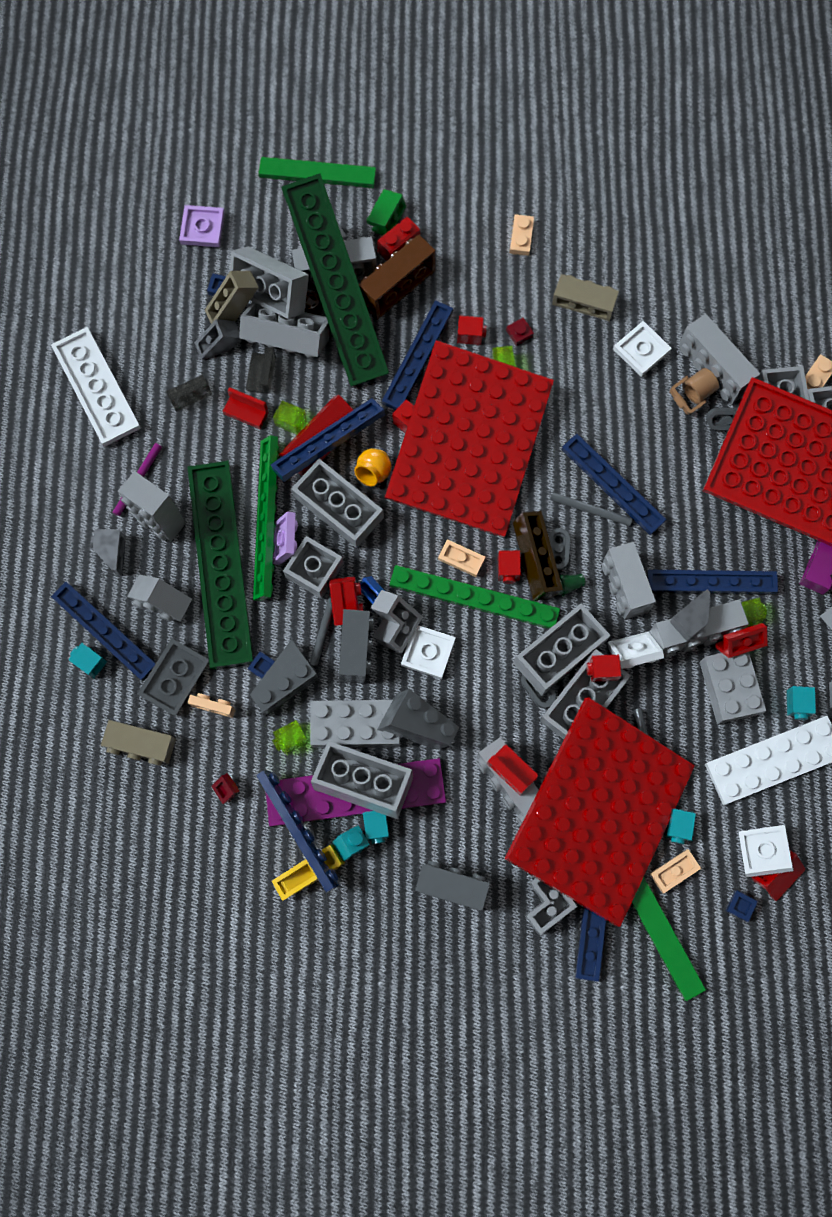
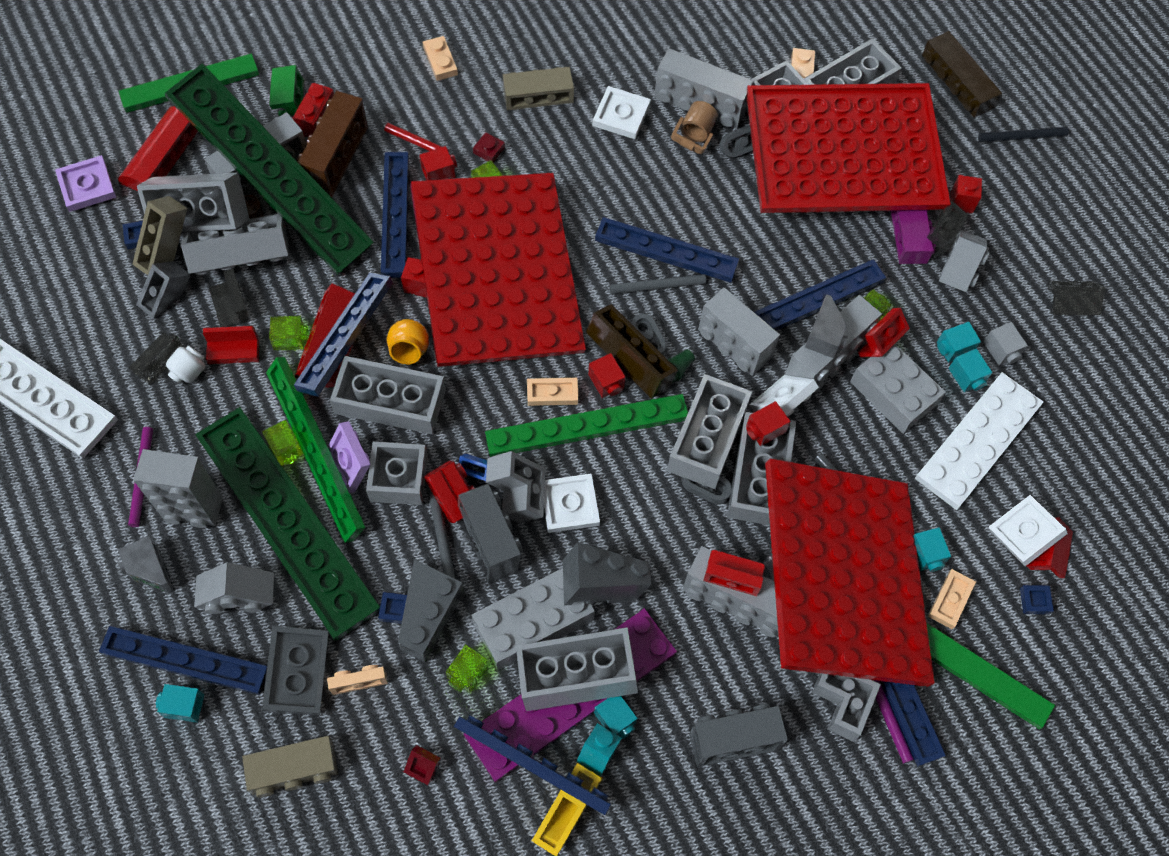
camera: 35 degrees left, 10 degrees down
(205, 408) = (185, 364): none -> white head
(245, 503) = (283, 443): none -> clear neon green brick
(262, 225) = (159, 150): none -> red brick
(465, 298) = (412, 138): none -> red bar
(574, 937) = (893, 725): none -> magenta bar
(805, 673) = (957, 341): none -> teal brick

